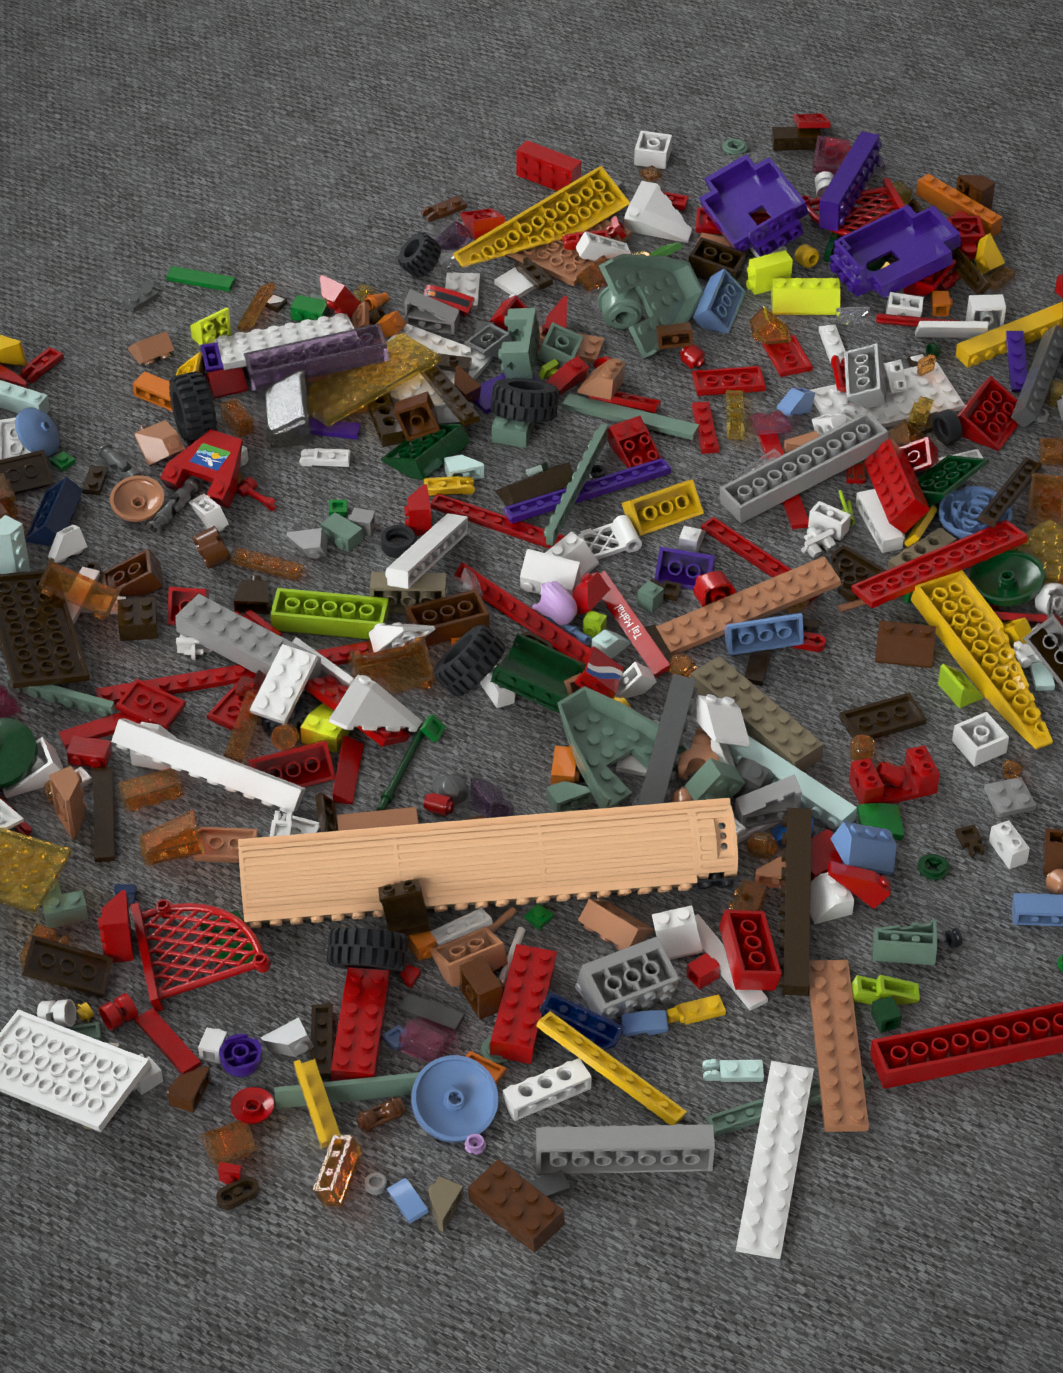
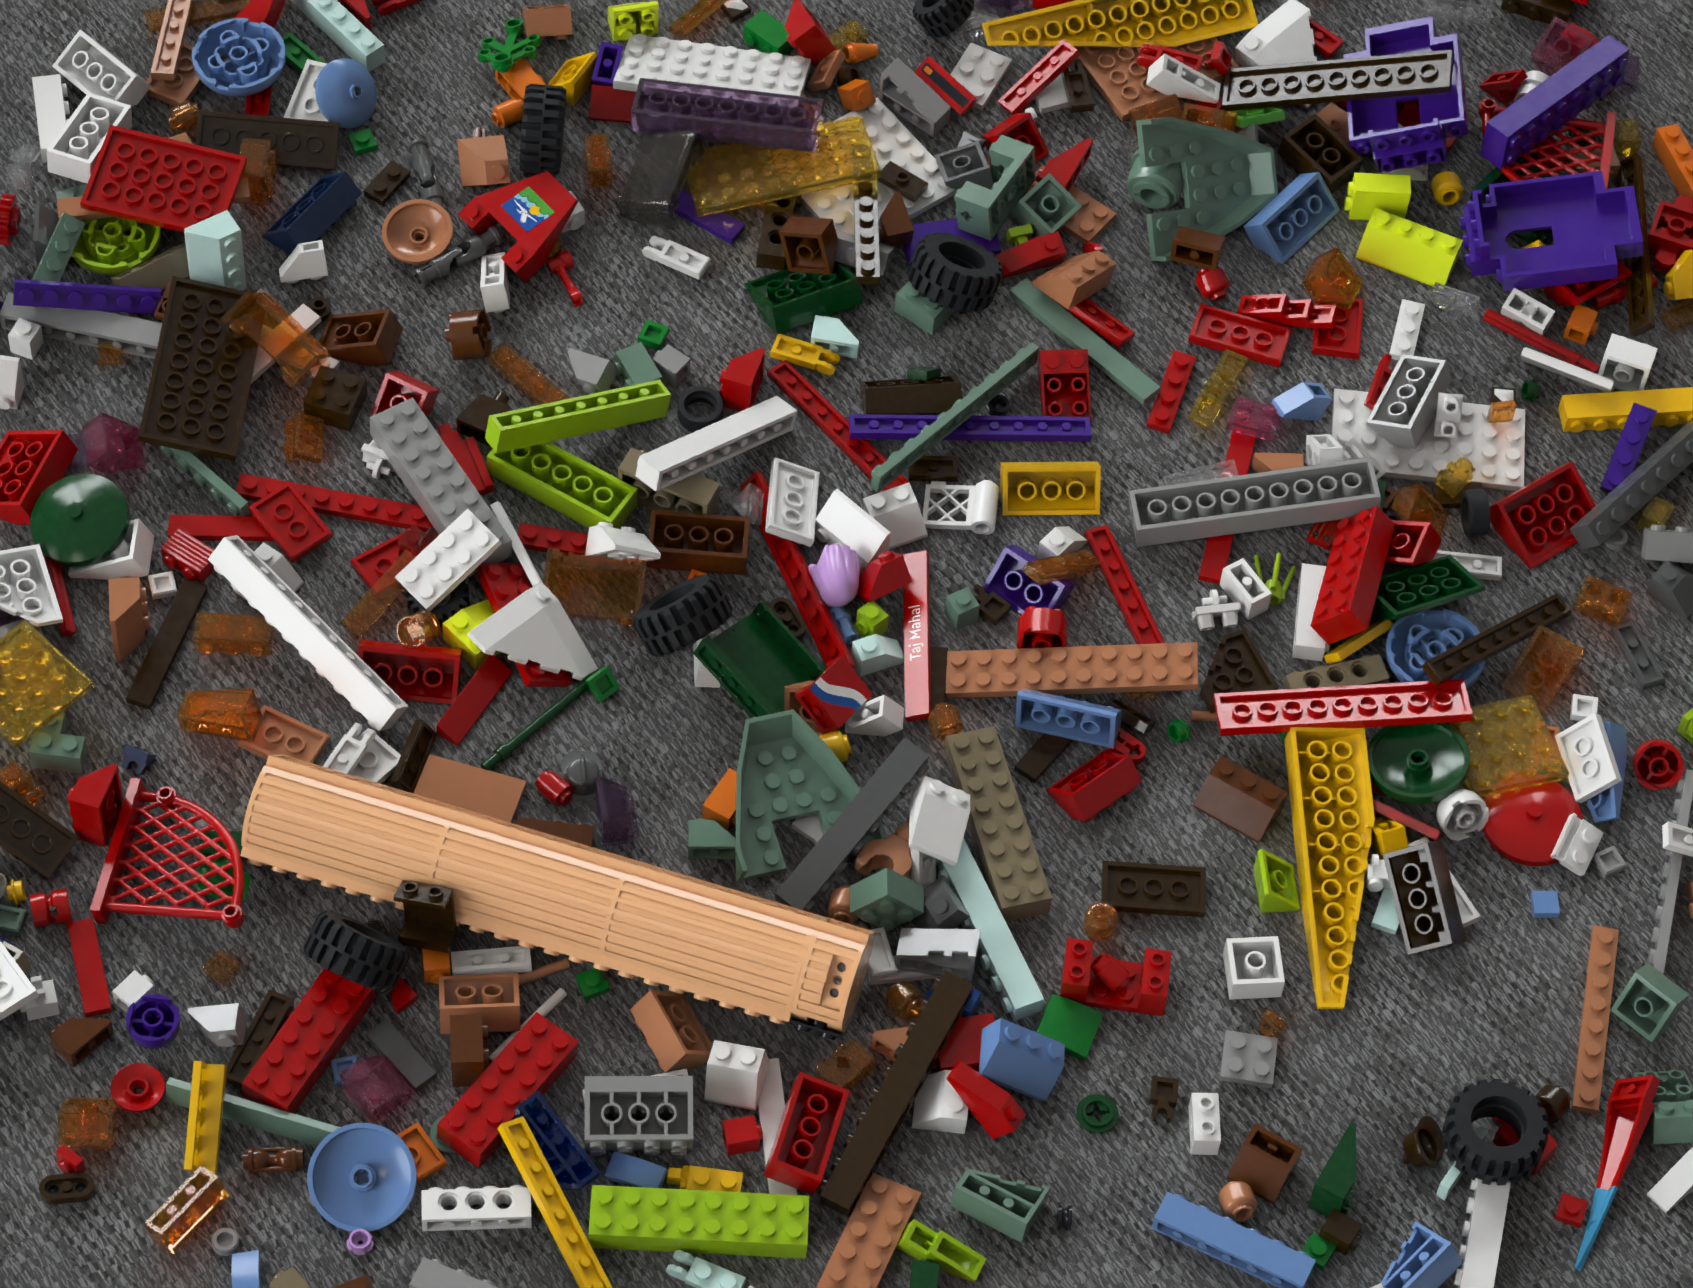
camera: 20 degrees right, 10 degrees up
(128, 651) = (303, 438): none -> clear orange bracket
(137, 375) = (504, 59): none -> green plant
(157, 410) = (508, 112): none -> orange brick
(265, 1005) = (221, 967): none -> clear orange tile
(320, 567) = (577, 416): none -> lime brick
(497, 572) = (792, 502): none -> white tile
(506, 275) = (1039, 77): none -> plate
(579, 522) = (934, 469): none -> dark brown plate
(704, 546) = (1061, 566): none -> clear orange plate
(706, 211) = (1338, 80): none -> plate
(709, 1035) = (699, 1221): none -> lime brick
(754, 356) = (1288, 313): none -> red slope
(805, 670) = (1095, 785): none -> red slope
(807, 186) = (1504, 84): none -> red slope
(835, 622) = (1178, 730): none -> green plate

